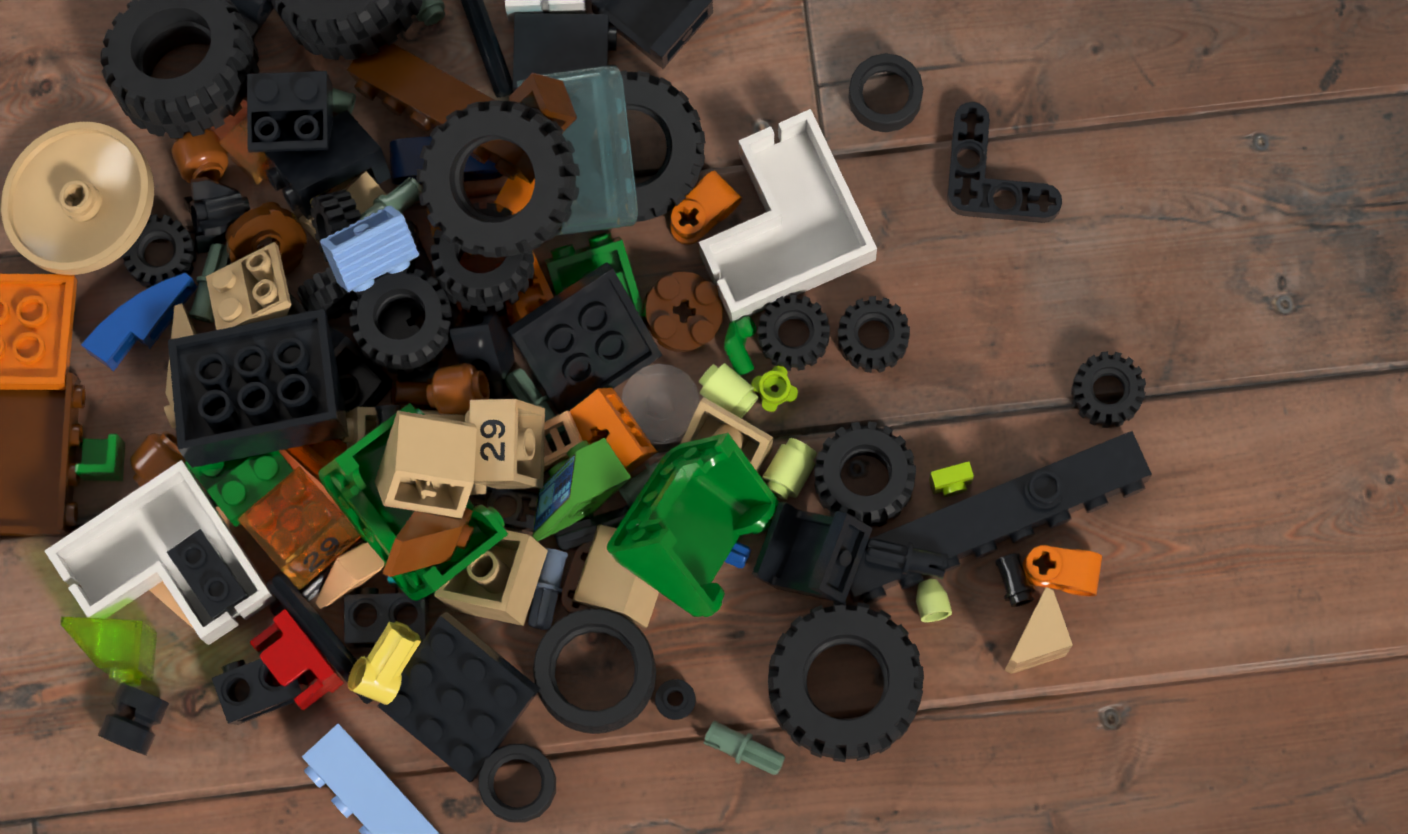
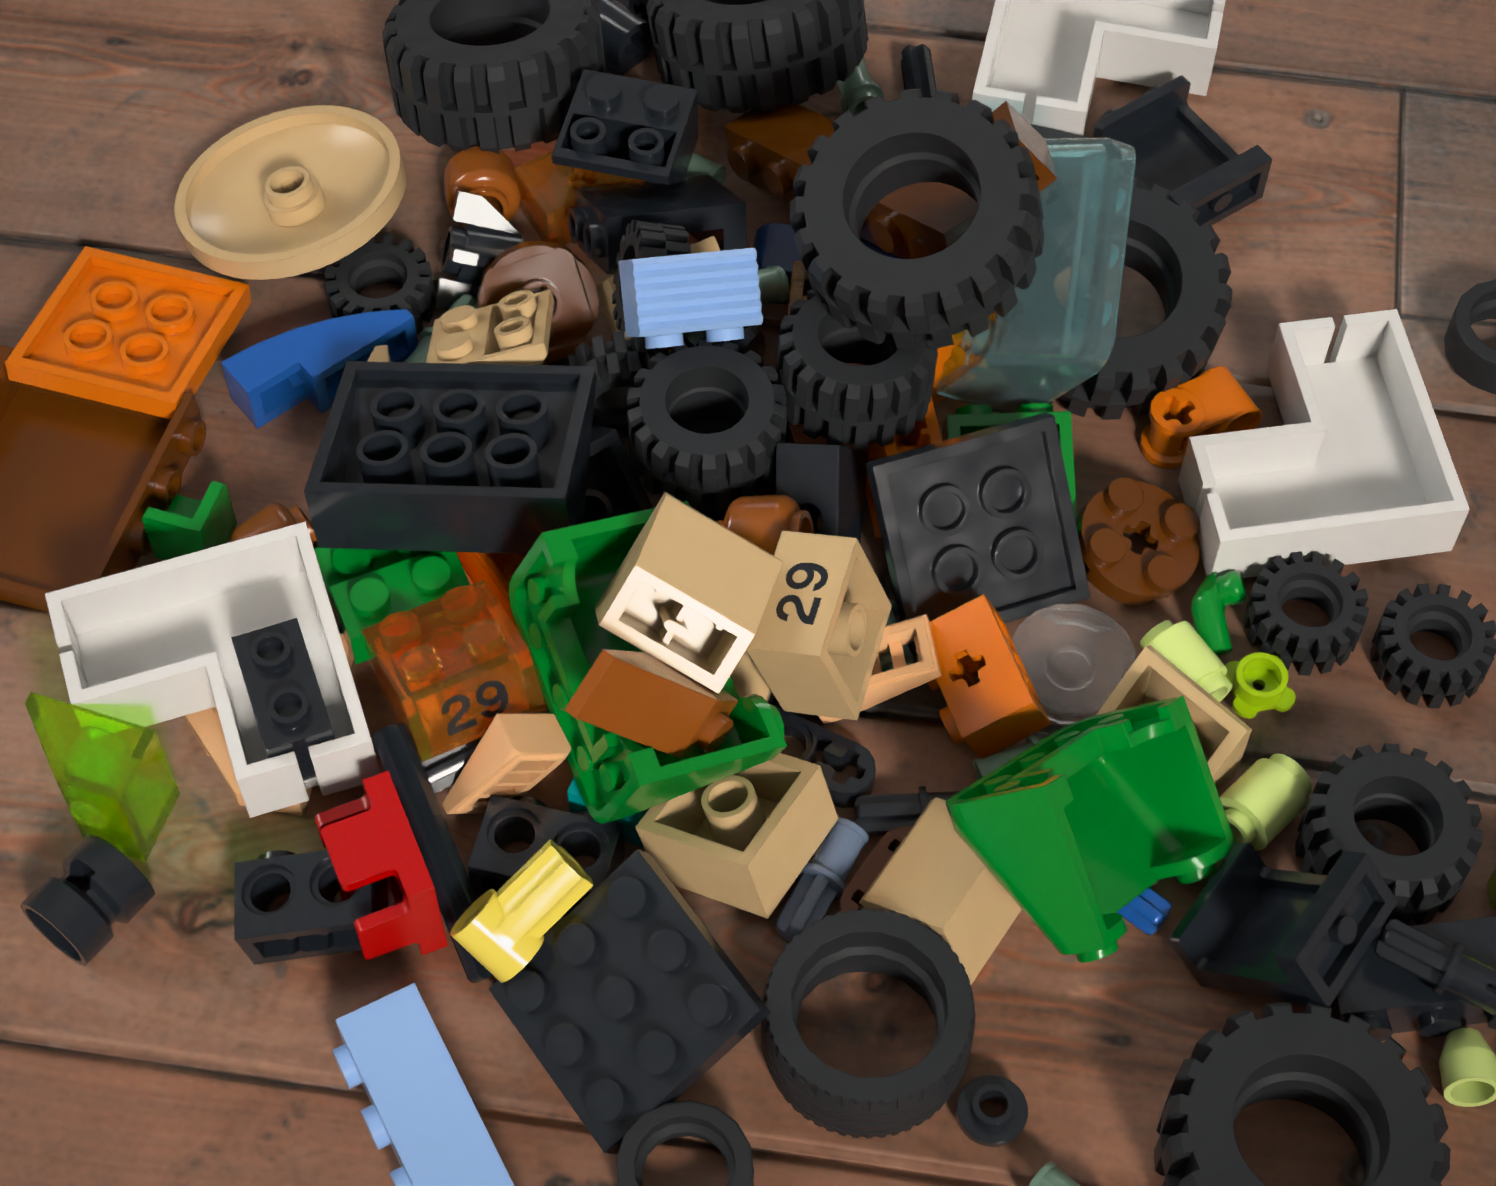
camera: 10 degrees right, 20 degrees down
(578, 487) = (918, 730): bright green slope -> none

